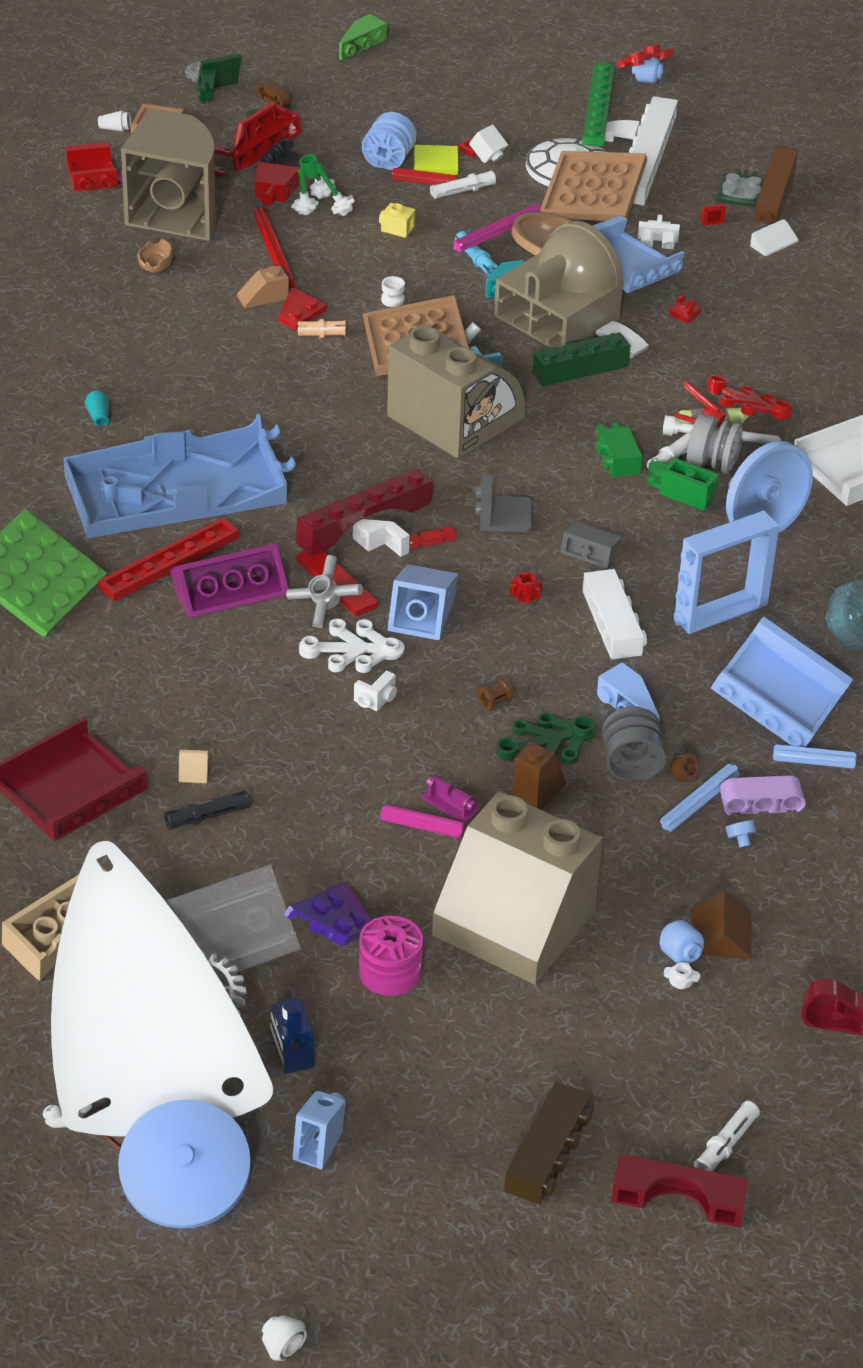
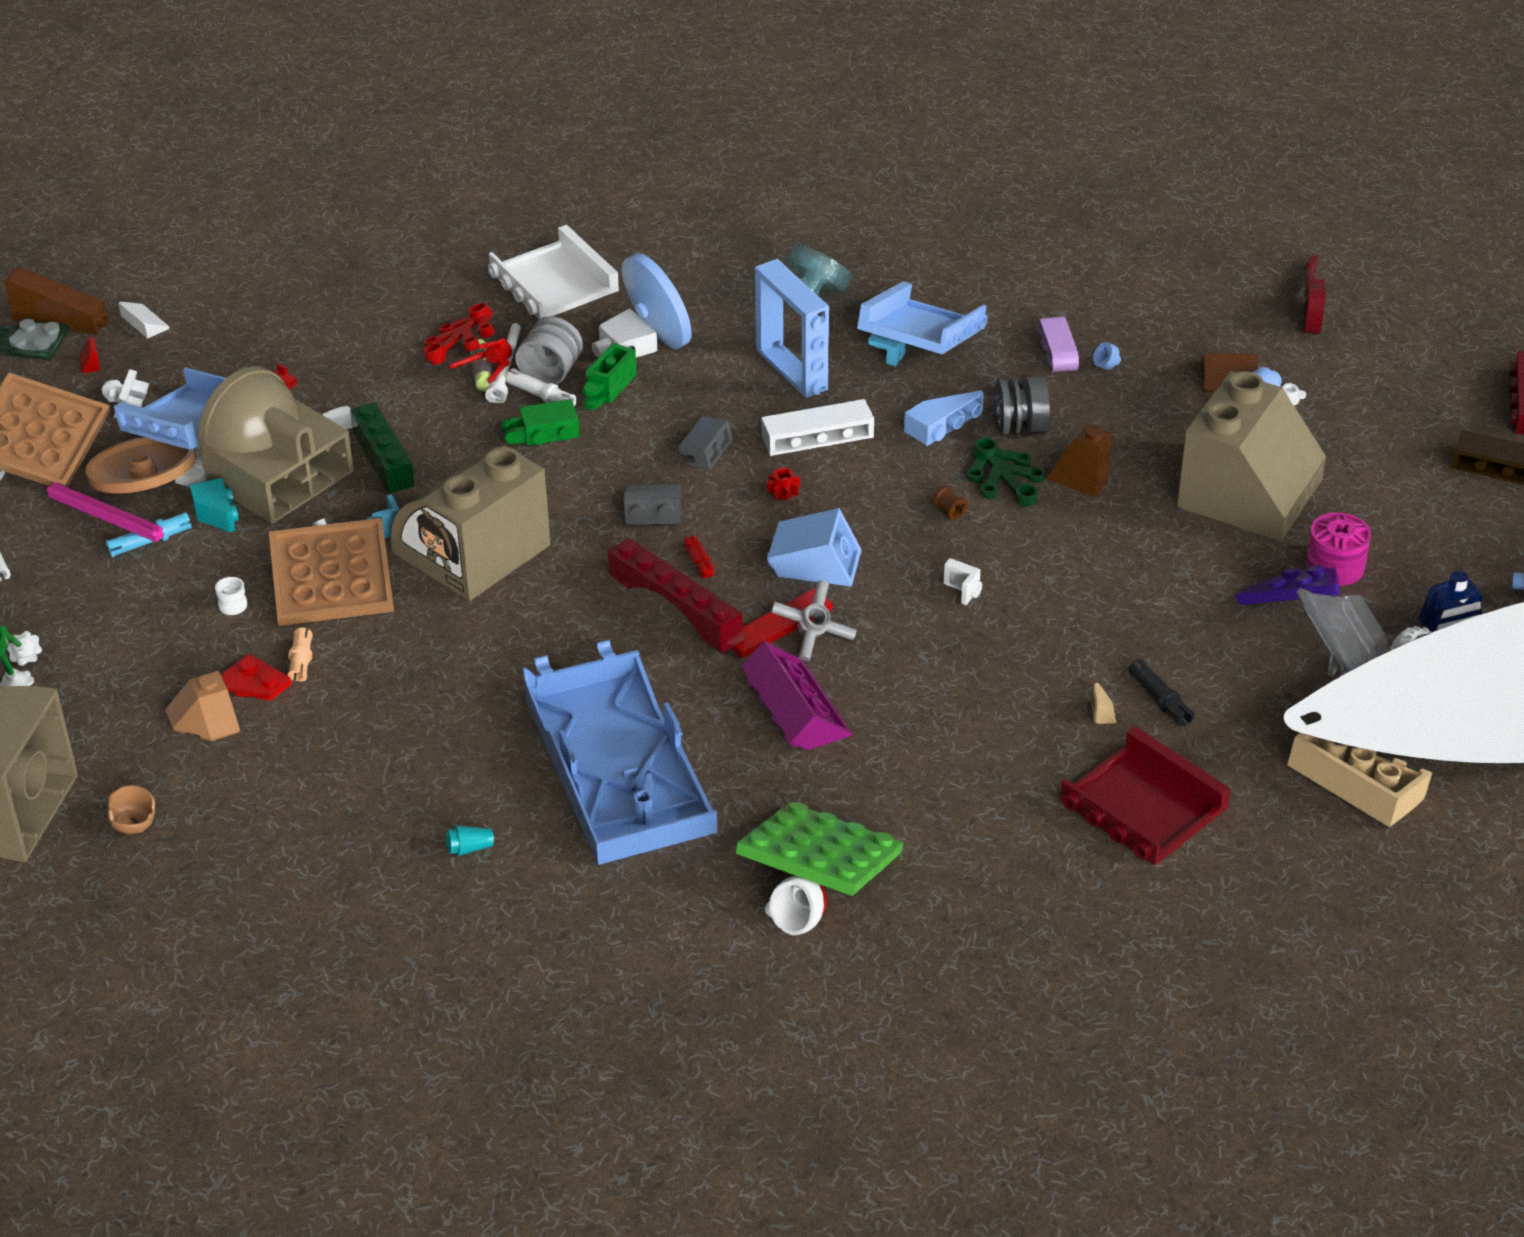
camera: 90 degrees left, 0 degrees up
(163, 560) = (761, 753): red plate -> none
(272, 243) = (120, 707): red axle -> none
(353, 647) = (889, 580): white plant -> none
(376, 533) = (713, 575): white slope -> none
(397, 219) = (70, 597): light yellow brick -> none
(422, 821) = (1137, 548): dark pink axle -> none
(450, 801) = (1107, 529): magenta hinge -> none
(698, 798) = (1064, 381): light blue axle -> none
(720, 1146) = (1474, 375): white pin -> none
(814, 756) = (993, 317): light blue axle -> none

